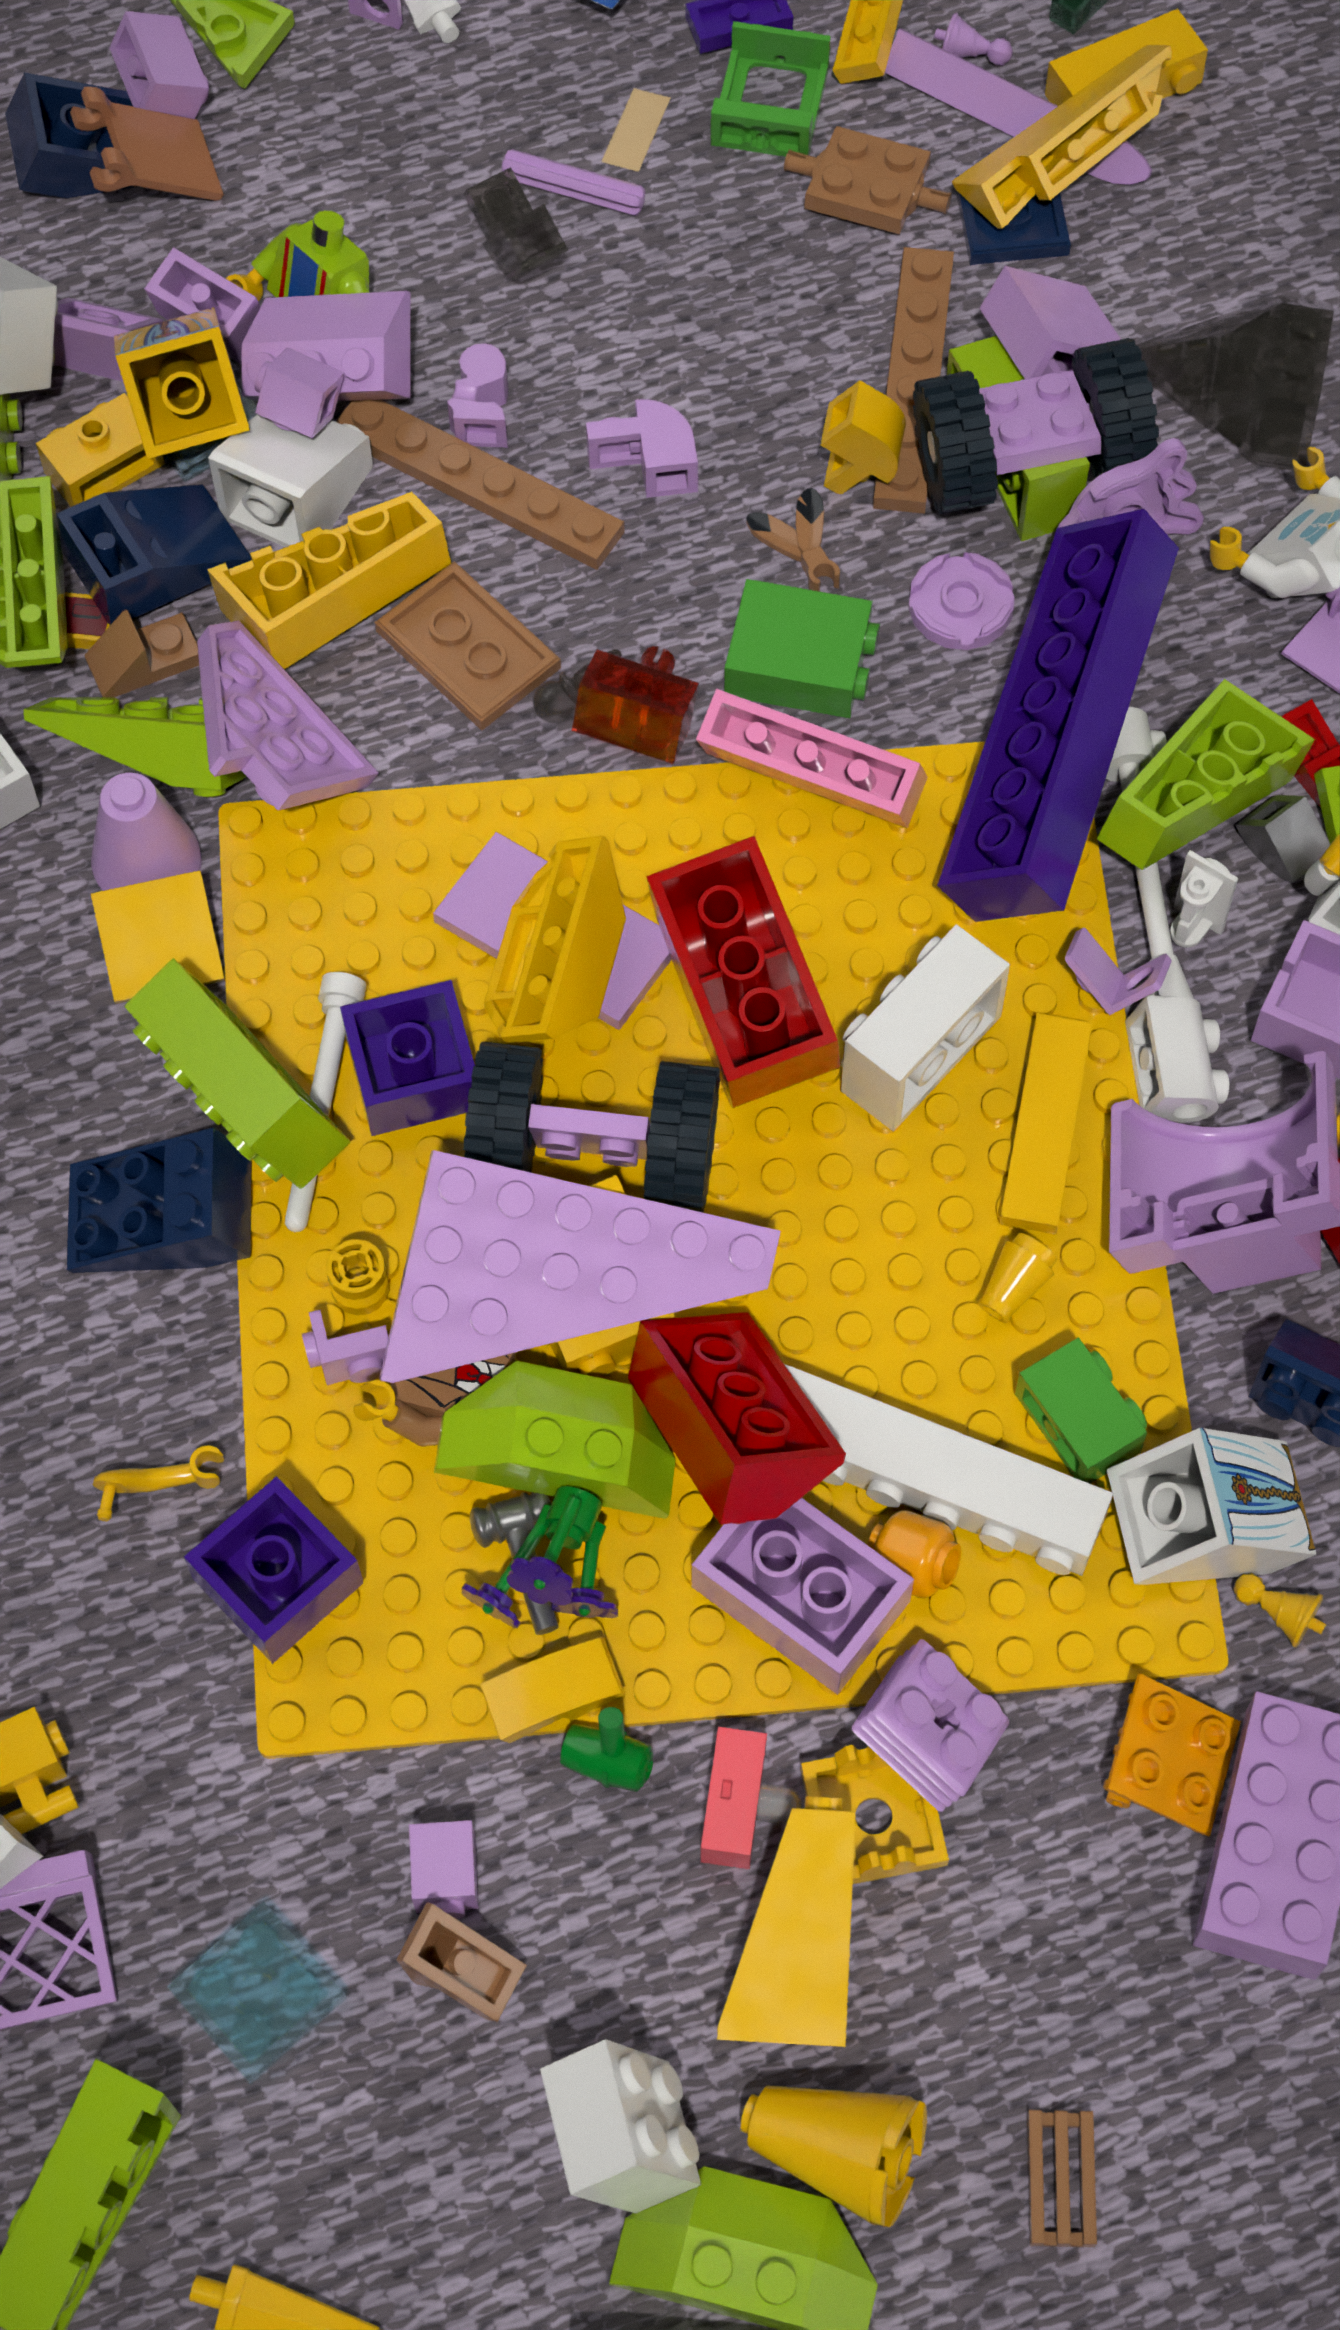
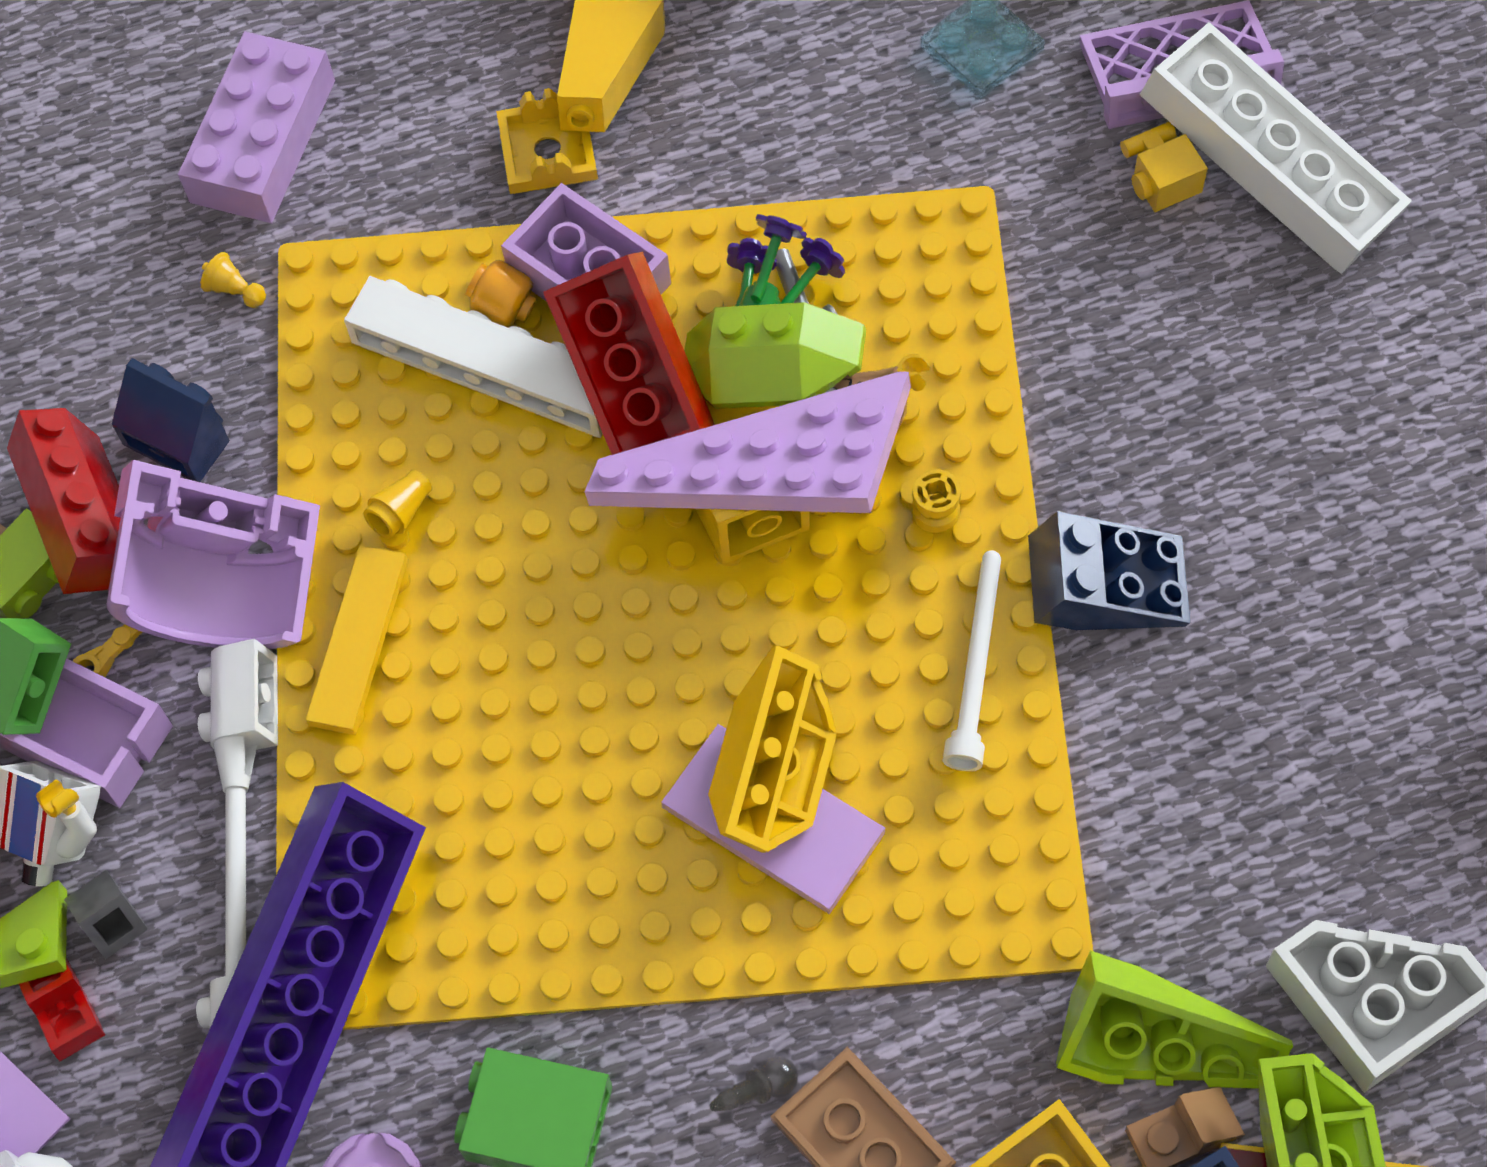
camera: 175 degrees left, 0 degrees up
(139, 835) = (1158, 909): lavender cone -> none
(151, 925) = (1136, 817): yellow tile -> none
(154, 1479) = (1113, 360): yellow piece -> none
(234, 1077) = (1048, 648): lime brick -> none
(270, 726) = (1046, 998): lavender wing -> none
(274, 1569) = (987, 272): dark purple brick -> none
(346, 1357) = (940, 438): lavender bracket -> none
(409, 1056) = (898, 674): dark purple brick -> none
(444, 1866) = (854, 107): lavender brick -> none
(460, 1963) = (842, 43): medium nougat slope -> none
(552, 1688) = (793, 200): yellow slope -> none
(607, 1753) = (736, 178): green piece -> none
(636, 703) = (695, 1049): clear red brick -> none
(677, 1142) = (736, 593): black plate -> none
(740, 1798) = (642, 150): coral piece -> none
(743, 972) = (602, 710): red brick -> none
(812, 758) = (530, 964): bright pink brick -> none
(923, 1026) = (451, 690): white brick -> none
(931, 1725) = (499, 178): lavender brick -> none
(1081, 1411) = (361, 397): bright green brick -> none
(1103, 978) = (288, 764): lavender bracket -> none
(1171, 1756) = (333, 183): light orange hinge -> none
(1203, 899) = (193, 823): white hinge -> none
(1204, 775) = (171, 943): lime wedge -> none
(1210, 1508) = (271, 322): white slope -> none

